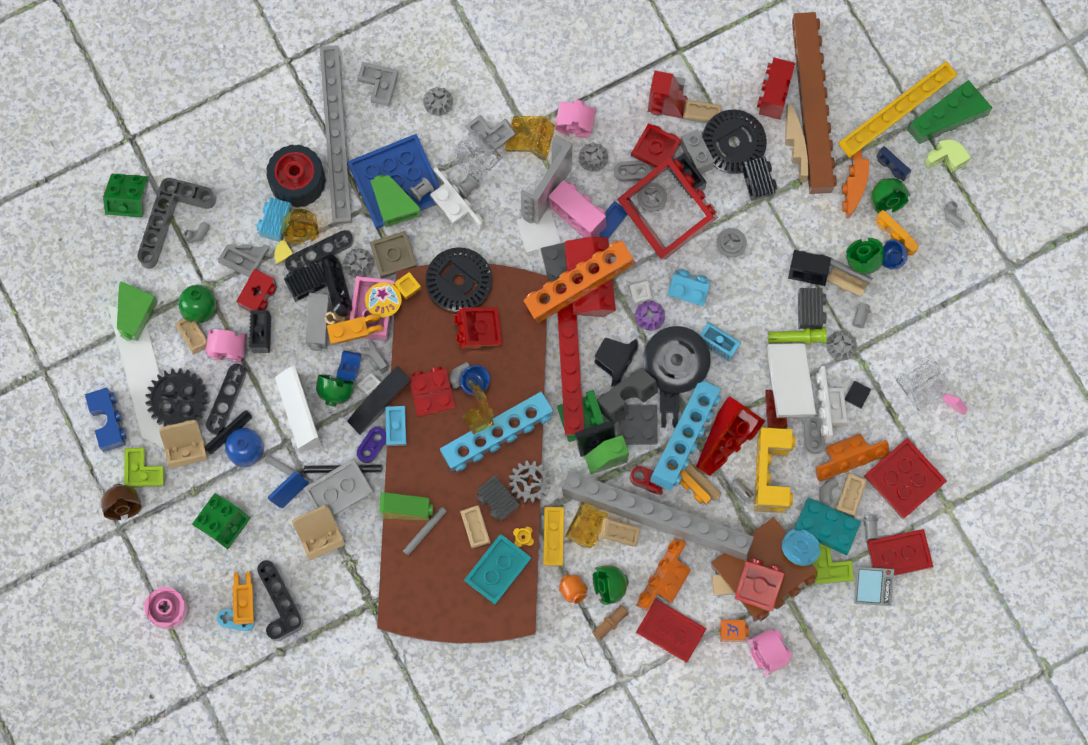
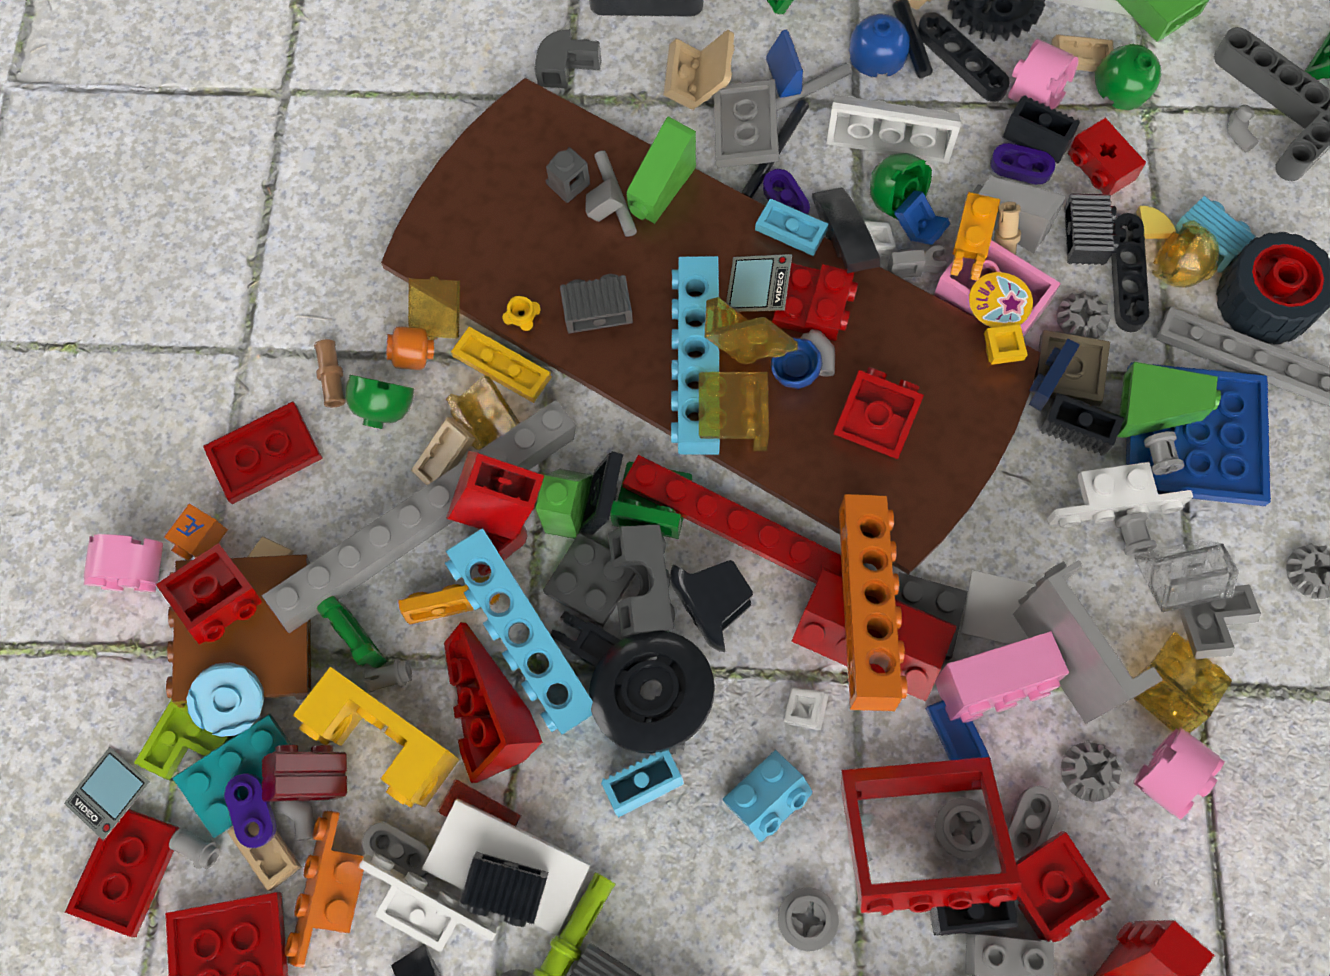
camera: 125 degrees right, 5 degrees down
(243, 258) = (1171, 168): light grey wing -> none
(282, 334) = (1022, 162): none -> dark purple plate
(336, 283) = (1062, 252): black beam -> none
(352, 621) = (560, 54): none -> dark grey brick
(415, 258) = (1058, 362): none -> dark blue plate
(425, 234) = (1082, 424): none -> black brick
(431, 560) = (563, 169): none -> dark grey brick
(434, 533) = (603, 200): none -> light grey slope
(438, 425) = (759, 283): none -> sticker
(465, 263) = (981, 460): black piece -> none
(475, 527) = (576, 256): tan plate -> none
(497, 569) = (497, 254): teal plate -> none
(518, 394) = (734, 407): none -> clear yellow bracket
(537, 483) = (593, 373): light grey gear -> none
(544, 588) = (434, 307): none -> clear yellow piece
(630, 479) = (494, 495): none -> red slope
(645, 322) = (742, 710): medium lavender gear -> none
(667, 577) = (334, 482): orange bracket -> none
(700, 479) = (447, 622): tan axle -> none
(736, 510) = (350, 630): none -> green plate
(801, 371) = (503, 889): none -> black brick
(810, 492) = (304, 775): none -> dark red brick
(840, 506) = (249, 810): none -> dark purple plate

